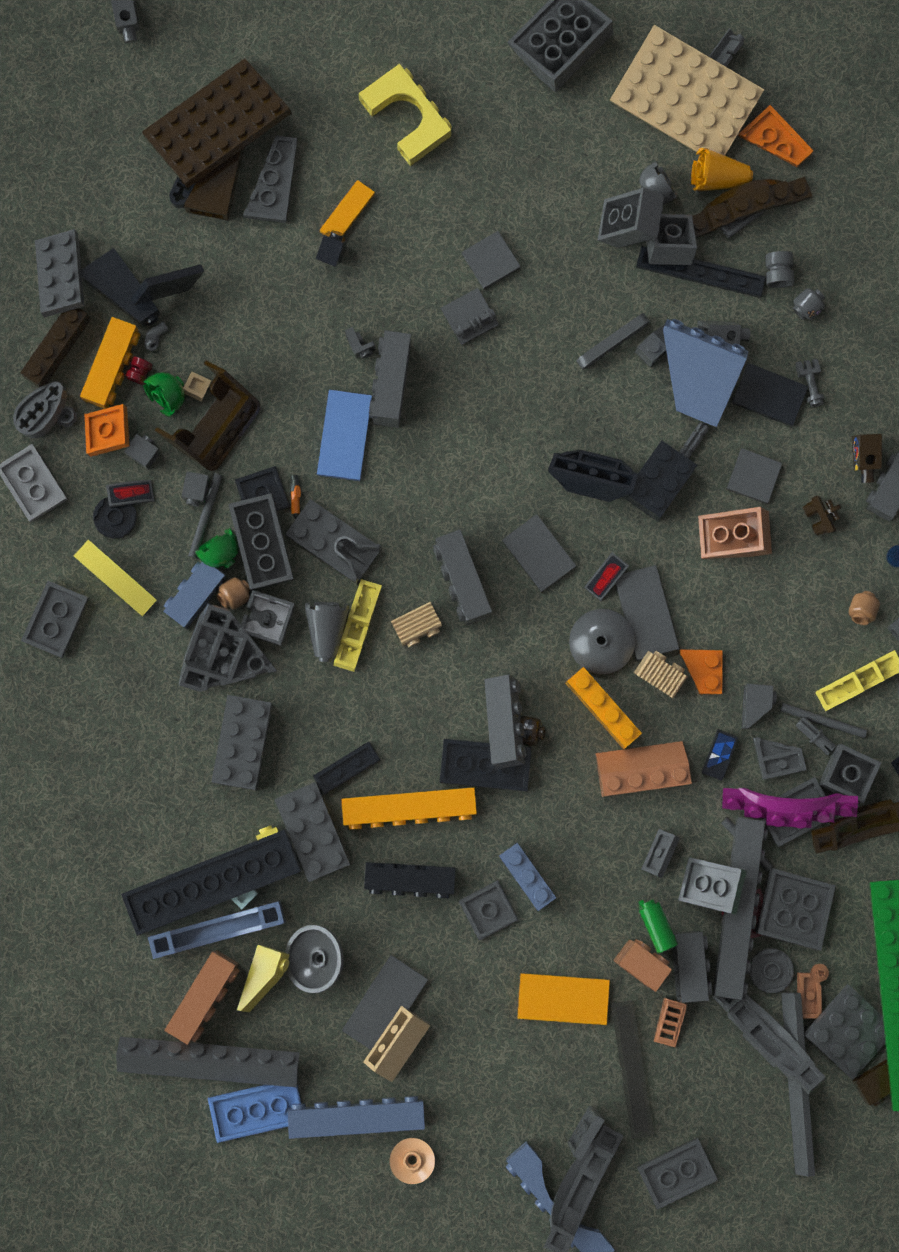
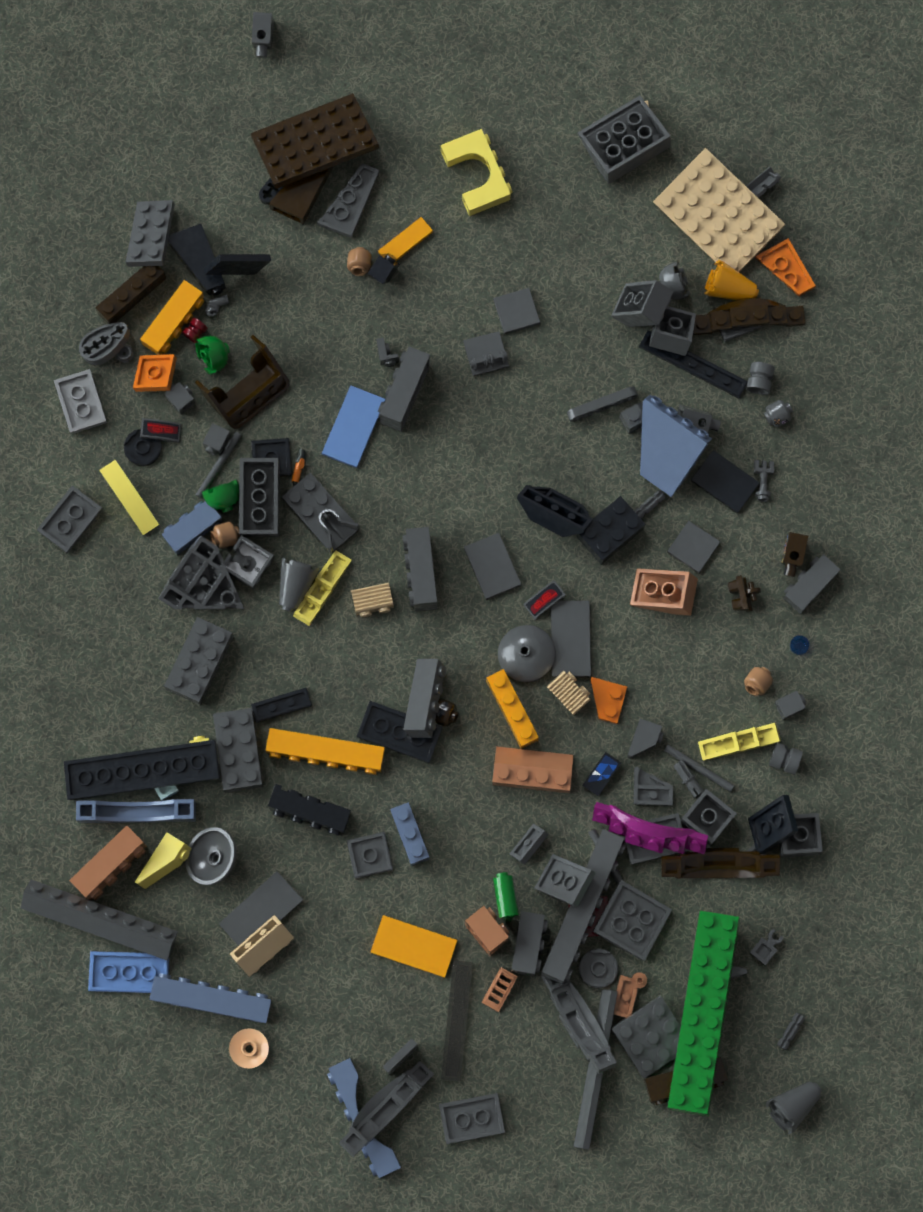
camera: 20 degrees right, 5 degrees down
(196, 386) = (240, 355): tan plate -> none
(302, 247) = (359, 261): none -> medium nougat head

